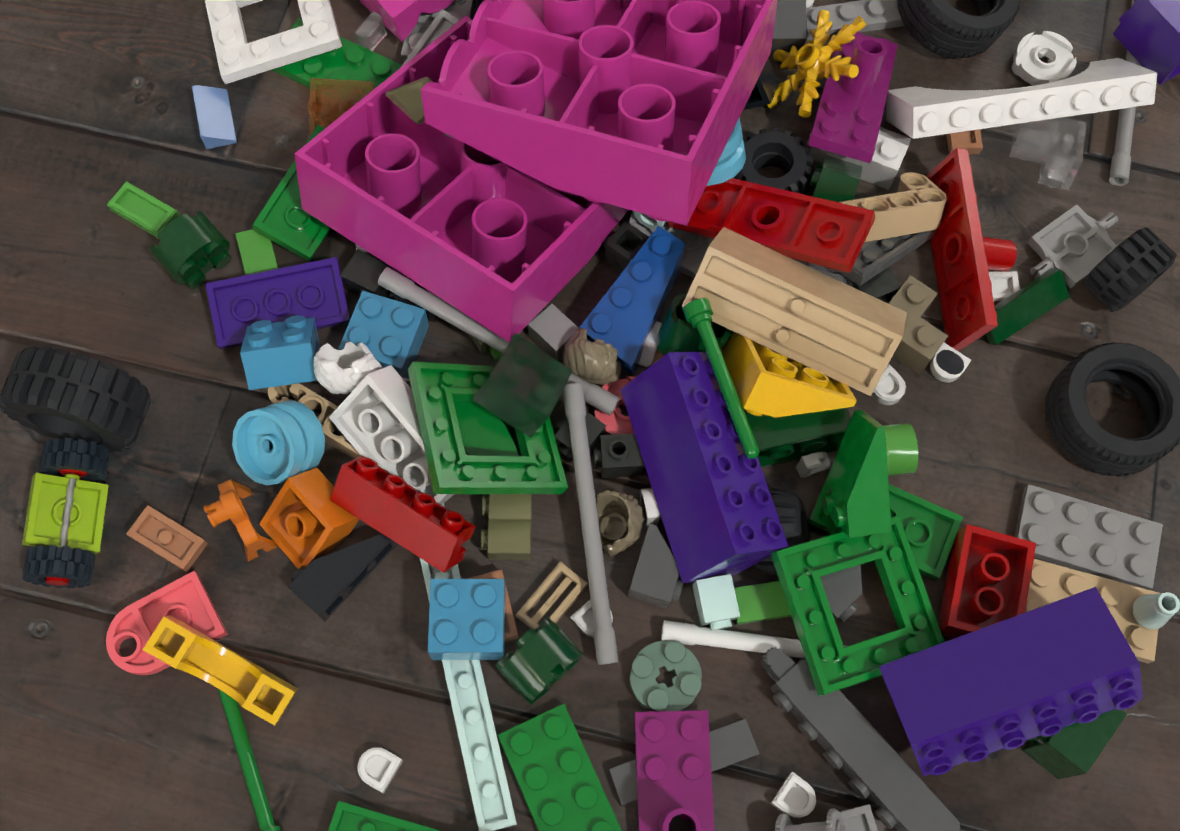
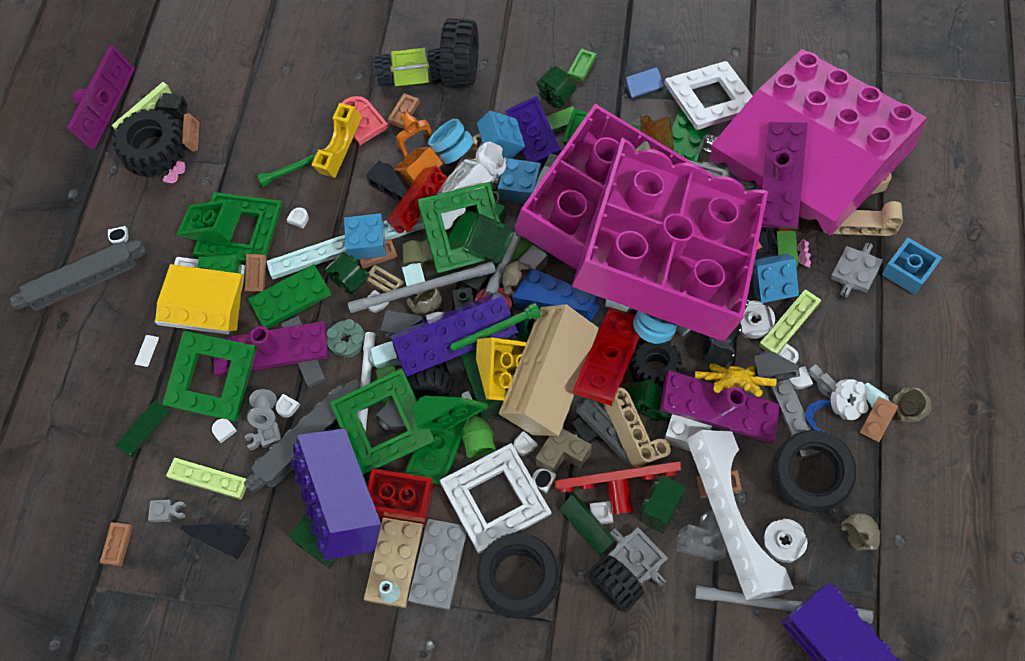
camera: 95 degrees right, 5 degrees down
(558, 539) = (413, 274): none -> light aqua brick
(970, 492) = (503, 460): none -> white plate
(1007, 192) = (662, 505): none -> dark green brick

